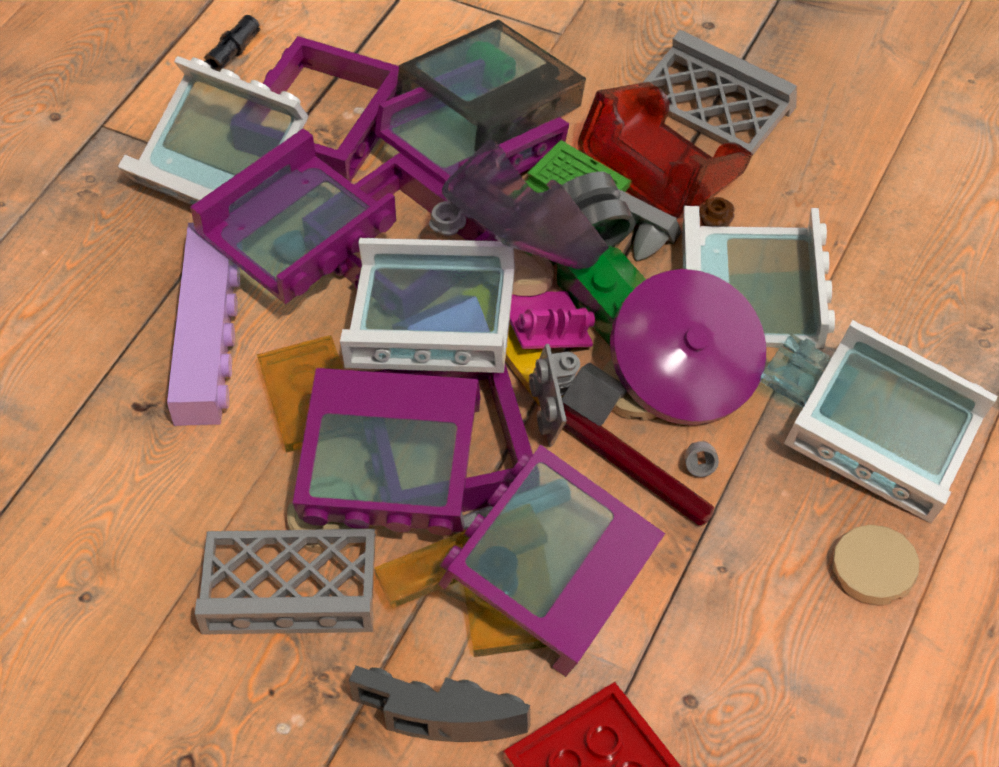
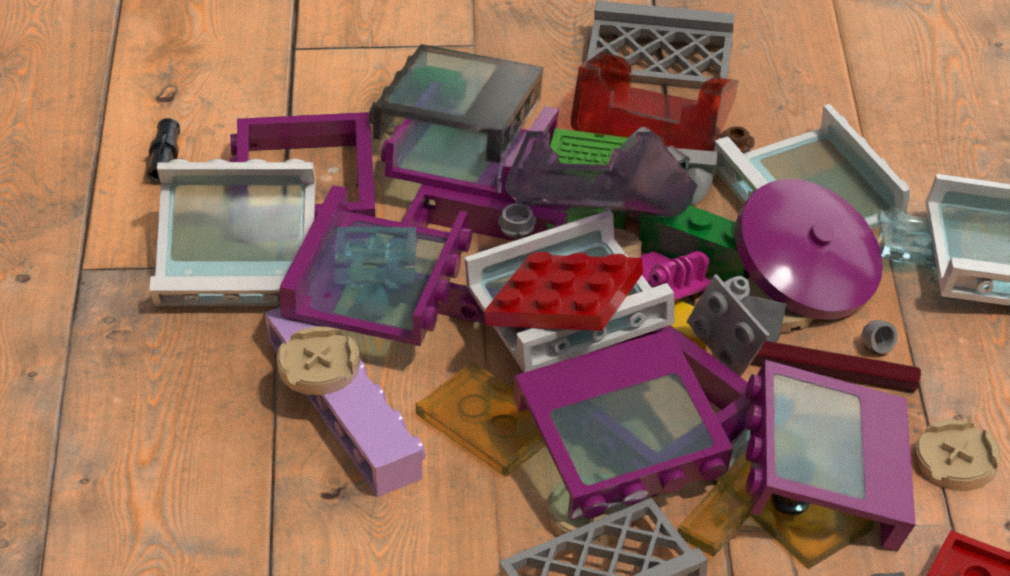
camera: 30 degrees left, 10 degrees down
(191, 284) = (318, 361): none -> tan tile
(303, 198) = (375, 247): none -> clear light blue plate
(413, 306) = (564, 291): none -> red plate
(688, 608) = (957, 455): none -> tan tile

